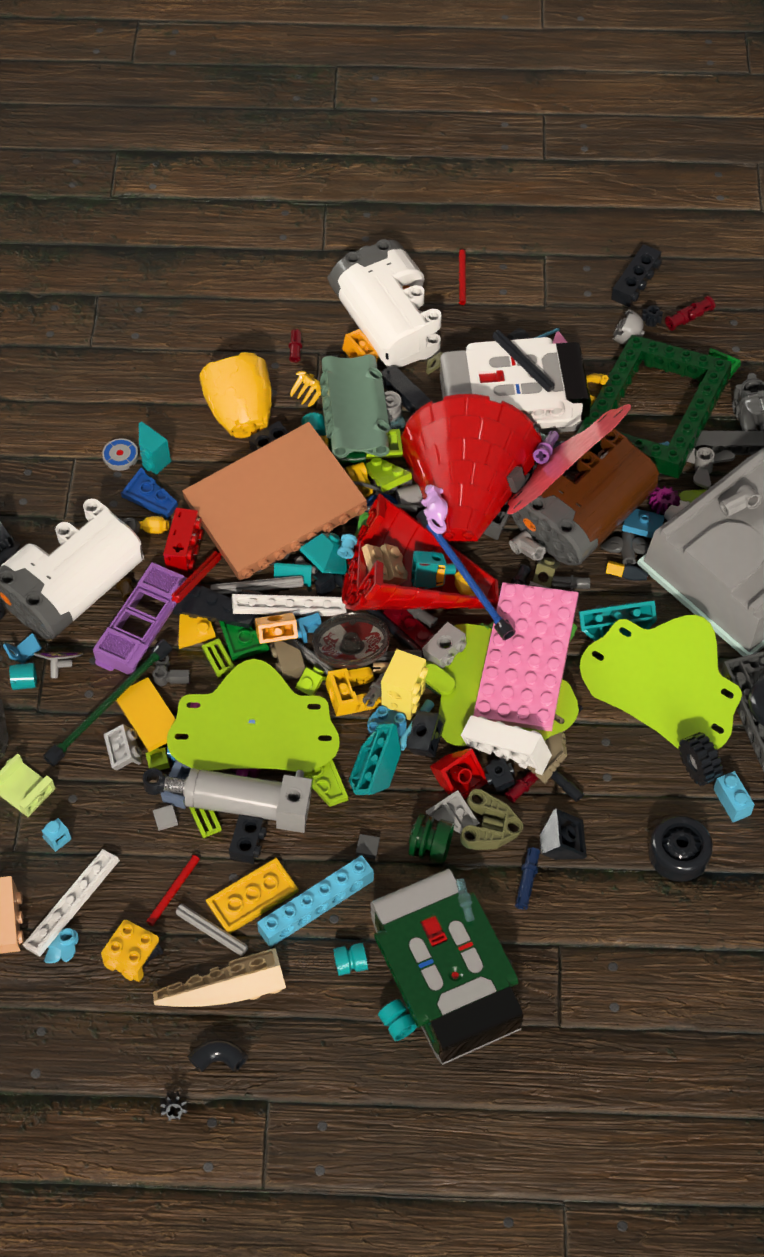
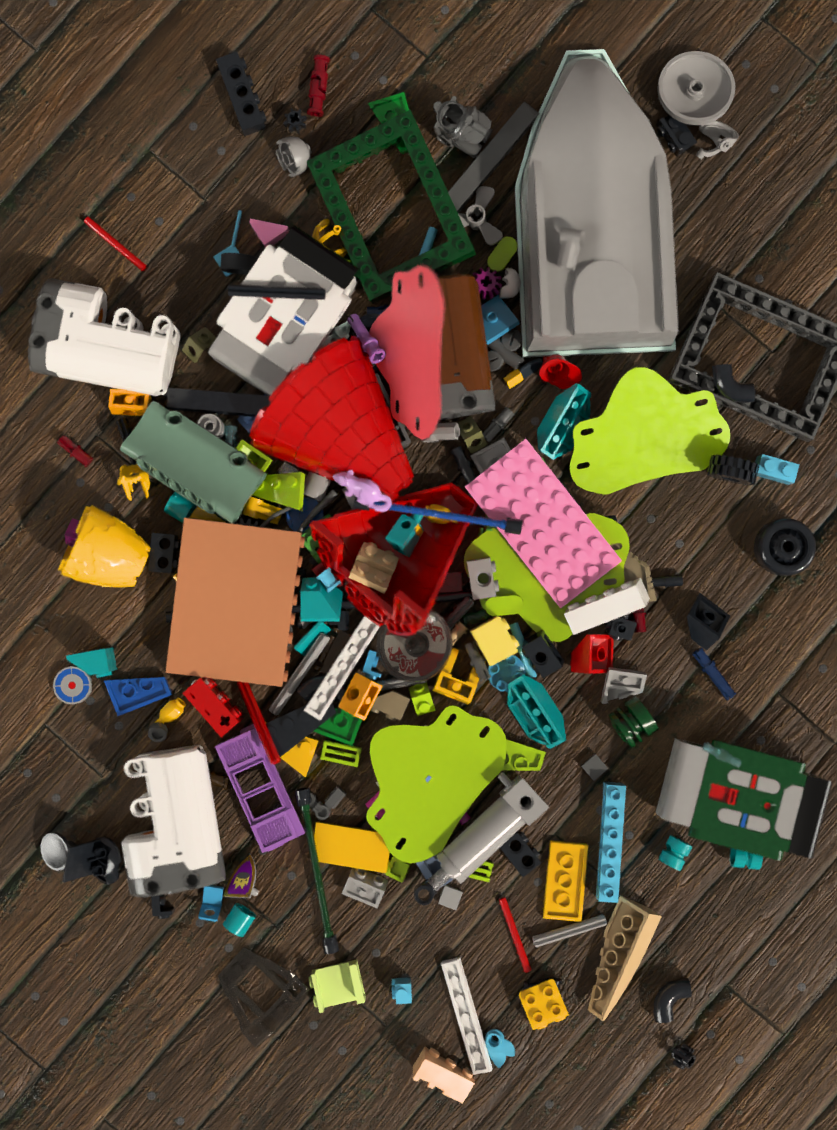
camera: 55 degrees left, 30 degrees up
(495, 822) = (661, 678): olive connector -> none
(516, 479) = (382, 395): dark grey tile -> none
(651, 587) = (559, 371): none -> red piece

